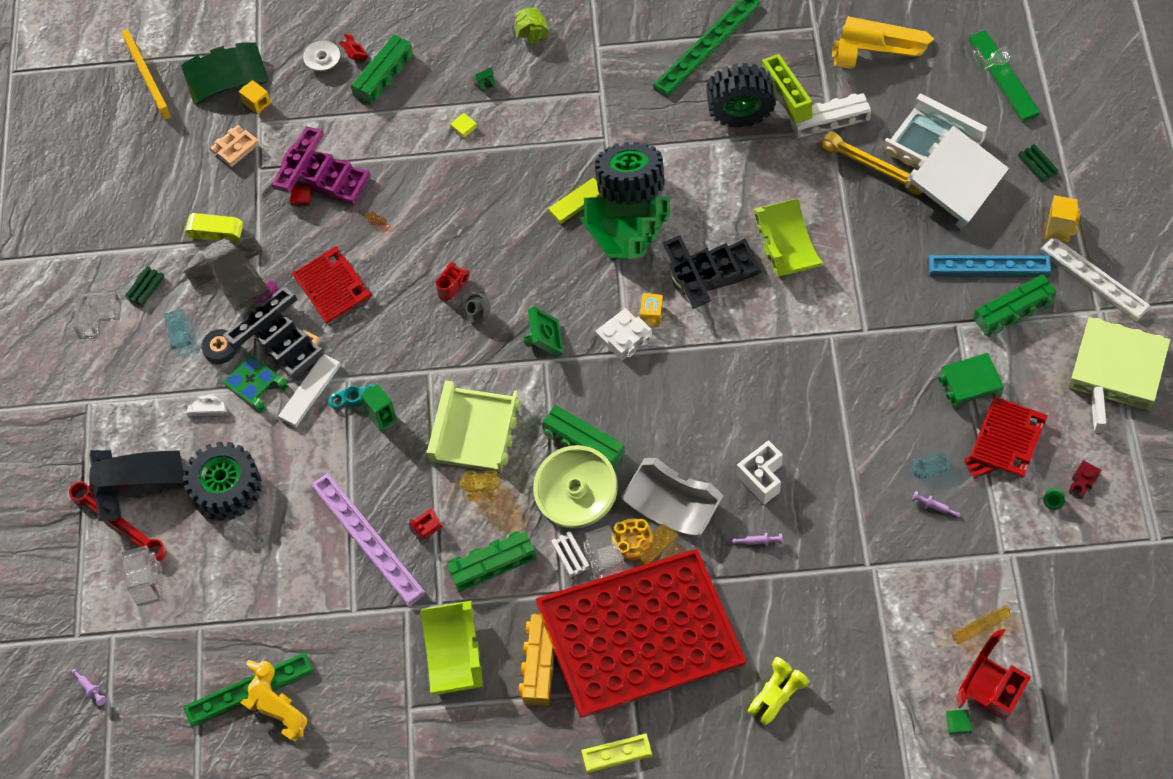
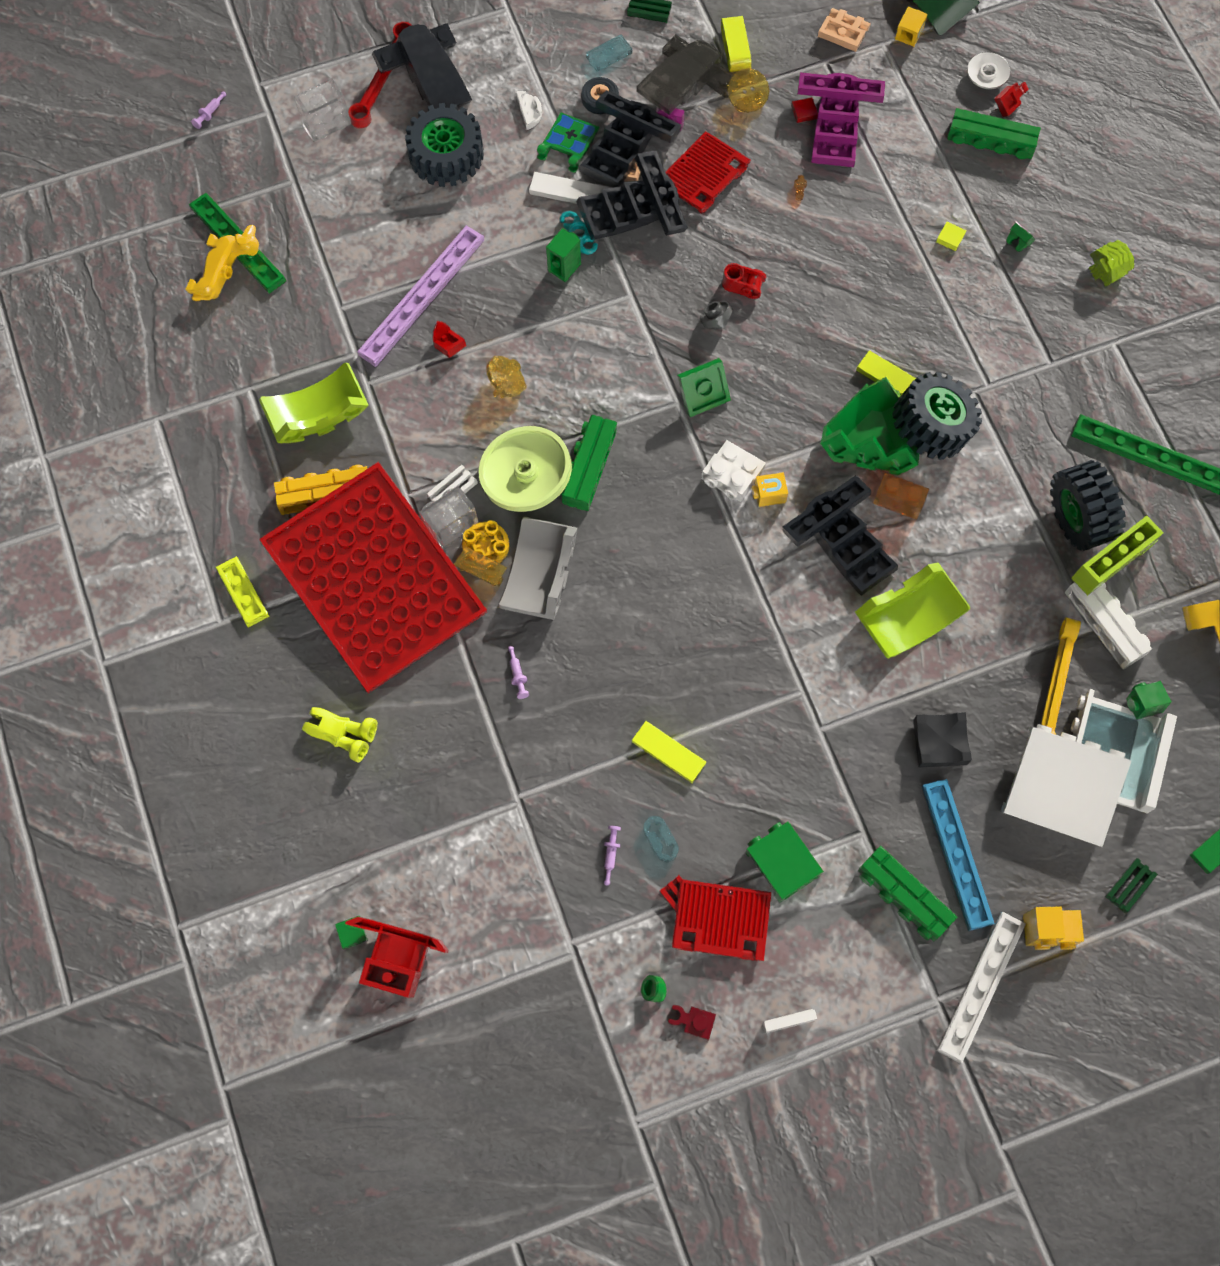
camera: 70 degrees right, 10 degrees up
(275, 231) = (751, 100): none -> clear yellow plate
(346, 340) = (634, 203): none -> black slope
(473, 428) = (573, 353): yellowish green panel -> none
(491, 561) = (421, 414): green brick -> none
(687, 219) = (901, 496): none -> clear orange brick
(758, 469) = (595, 647): white brick -> none
(858, 442) = (669, 752): none -> neon yellow tile
(898, 248) = (942, 740): none -> black brick
(900, 108) = (1148, 699): none -> green brick
(981, 624) = (474, 935): clear yellow axle -> none
(1120, 361) = (864, 1036): yellowish green panel -> none

